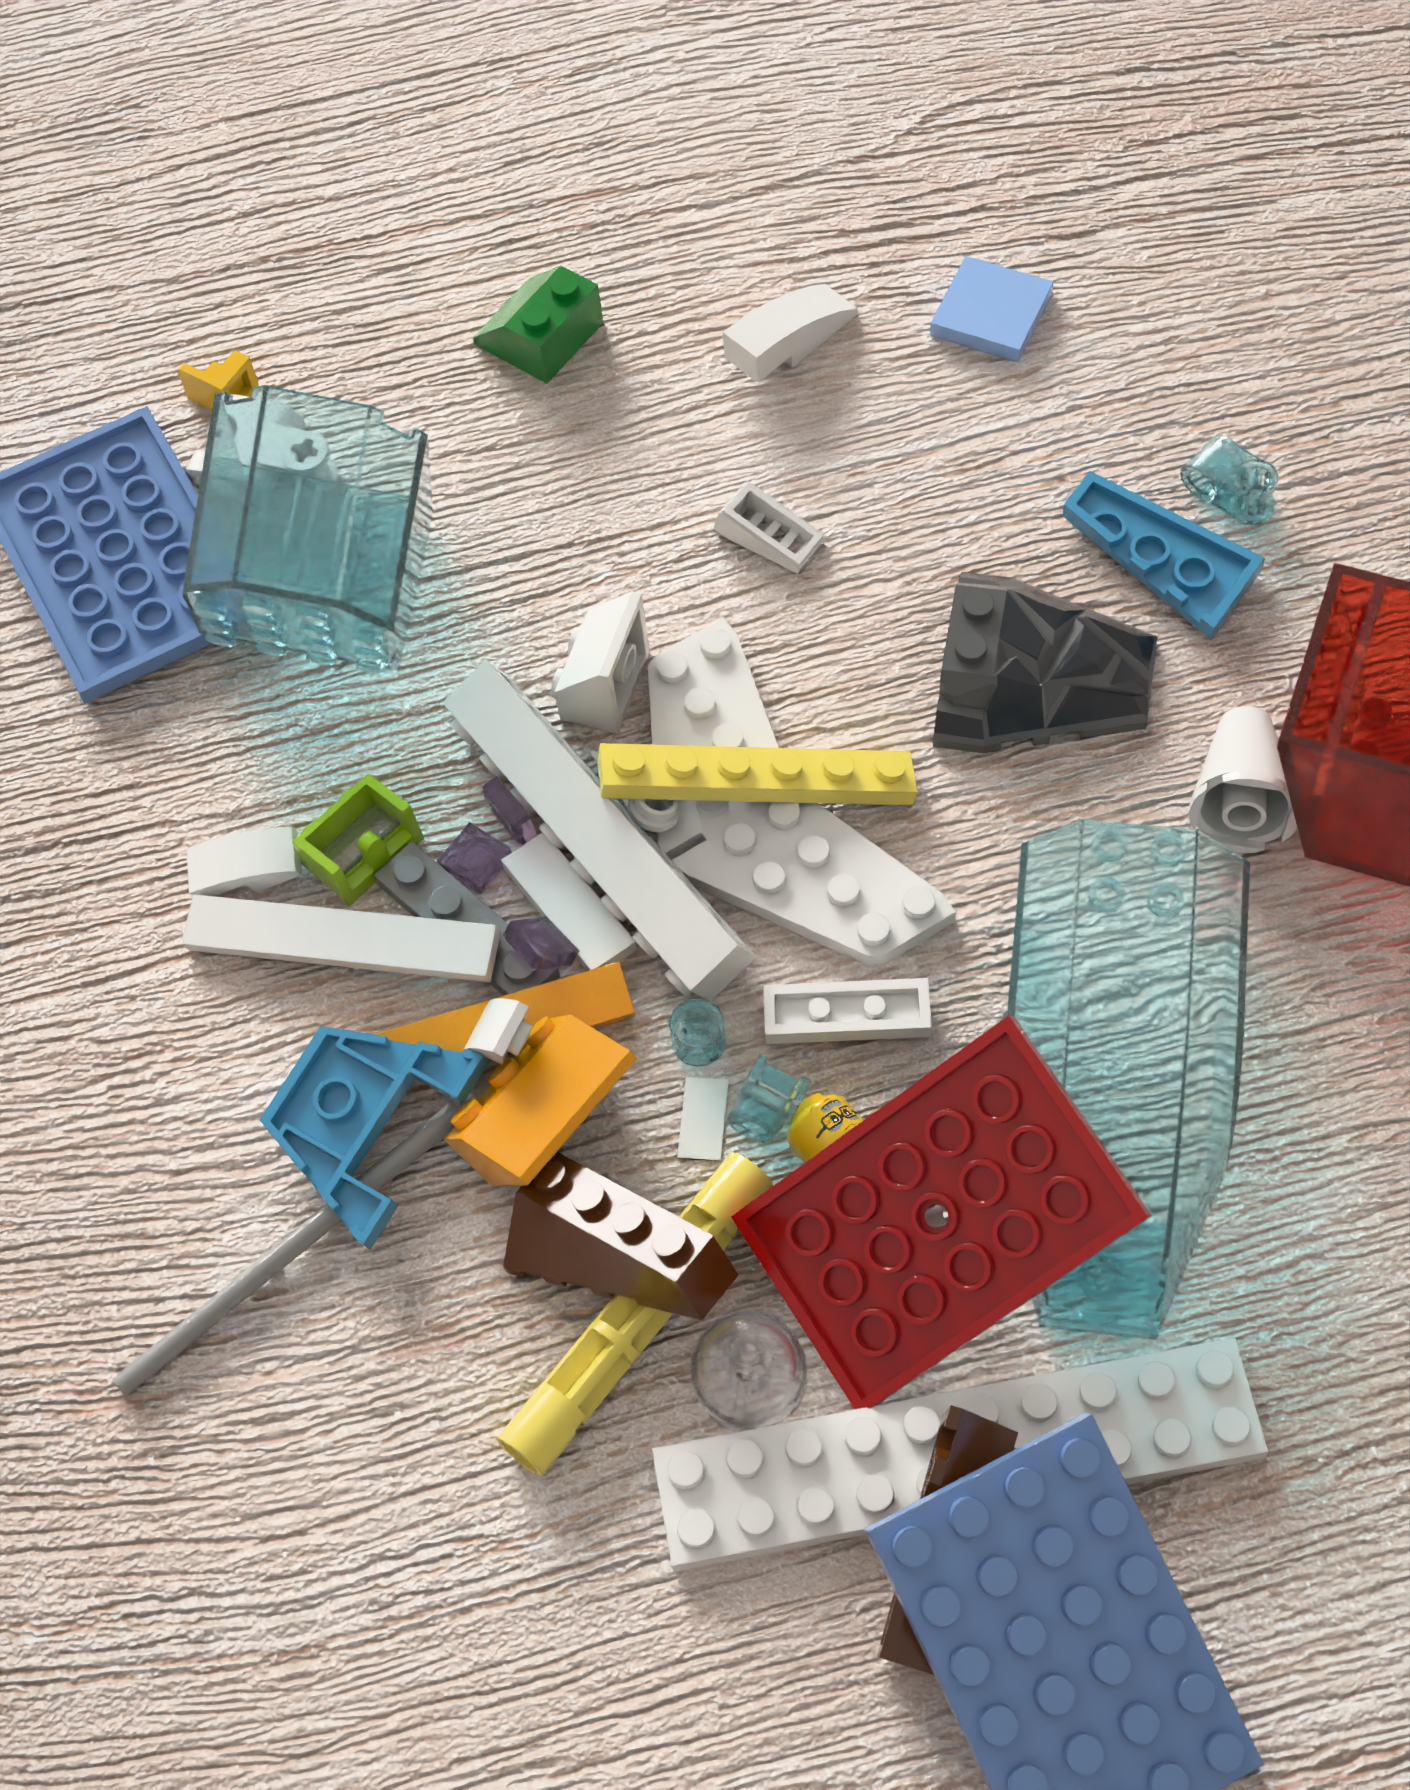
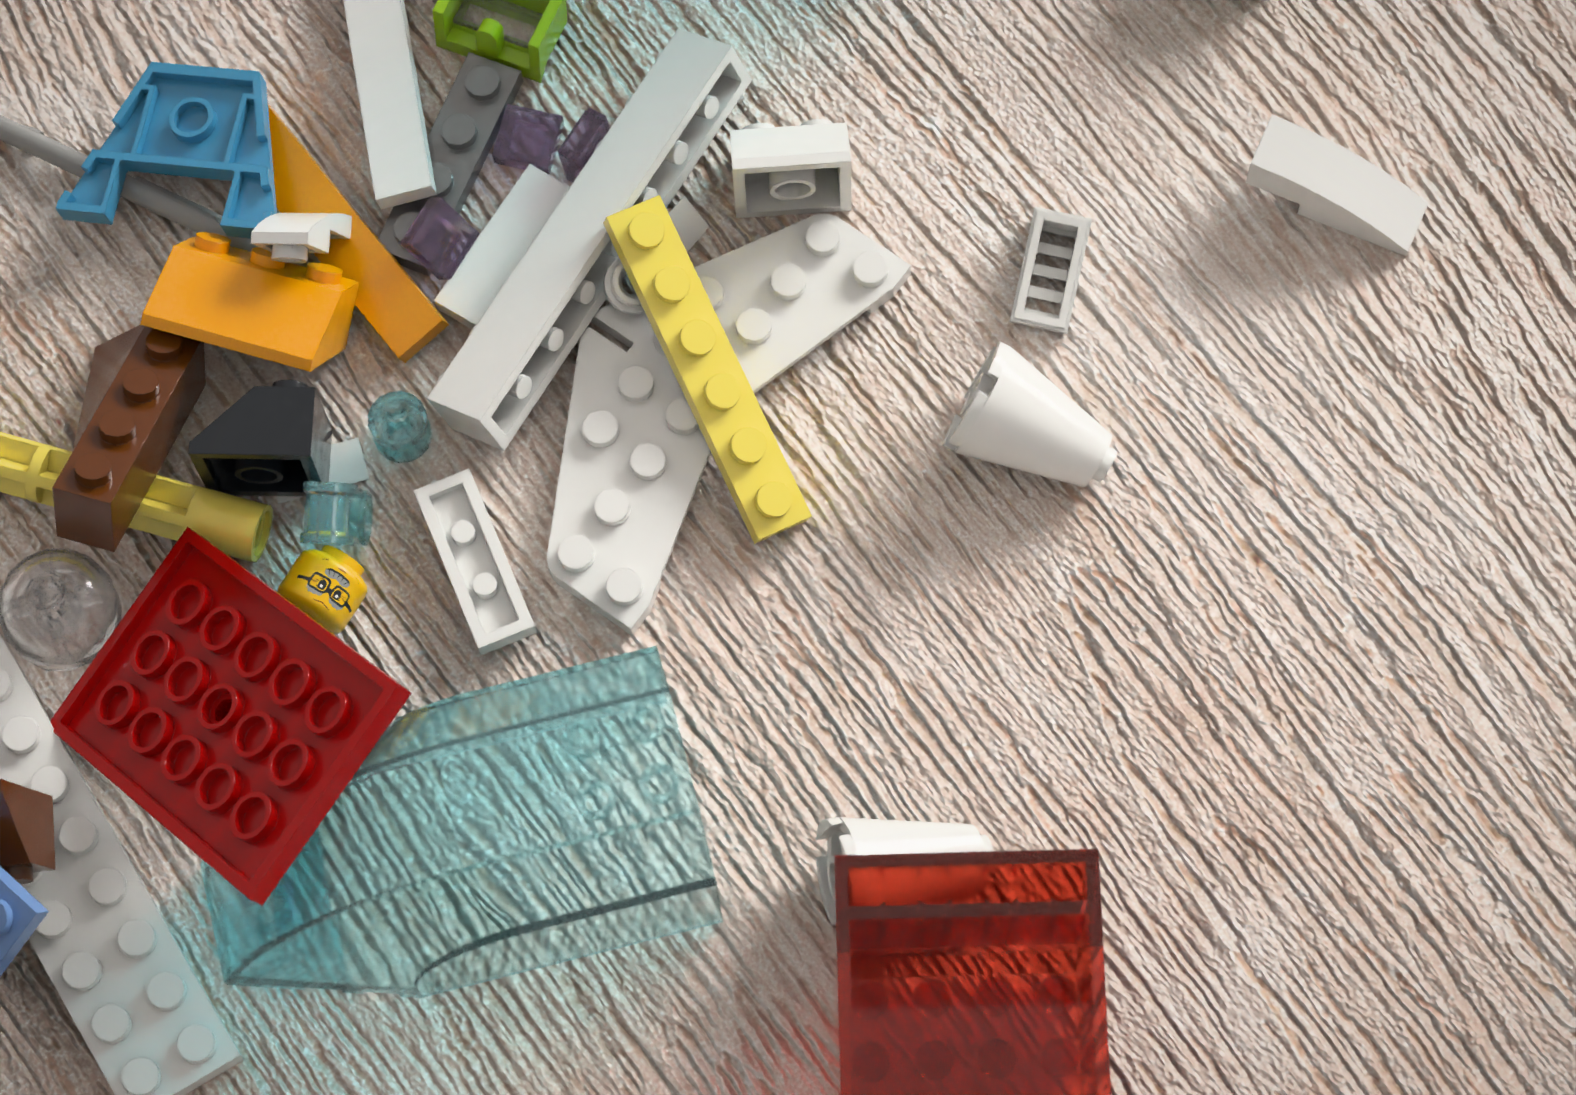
camera: 65 degrees right, 10 degrees up
(684, 1119) = (266, 443): none -> black slope
(894, 577) = (1028, 424): none -> white cone
(991, 308) = (1470, 398): light blue tile -> none
(1036, 668) = (978, 607): wedge -> none
(1172, 556) = (1181, 713): dark azure wing -> none
(1228, 474) = (1315, 736): clear light blue piece -> none

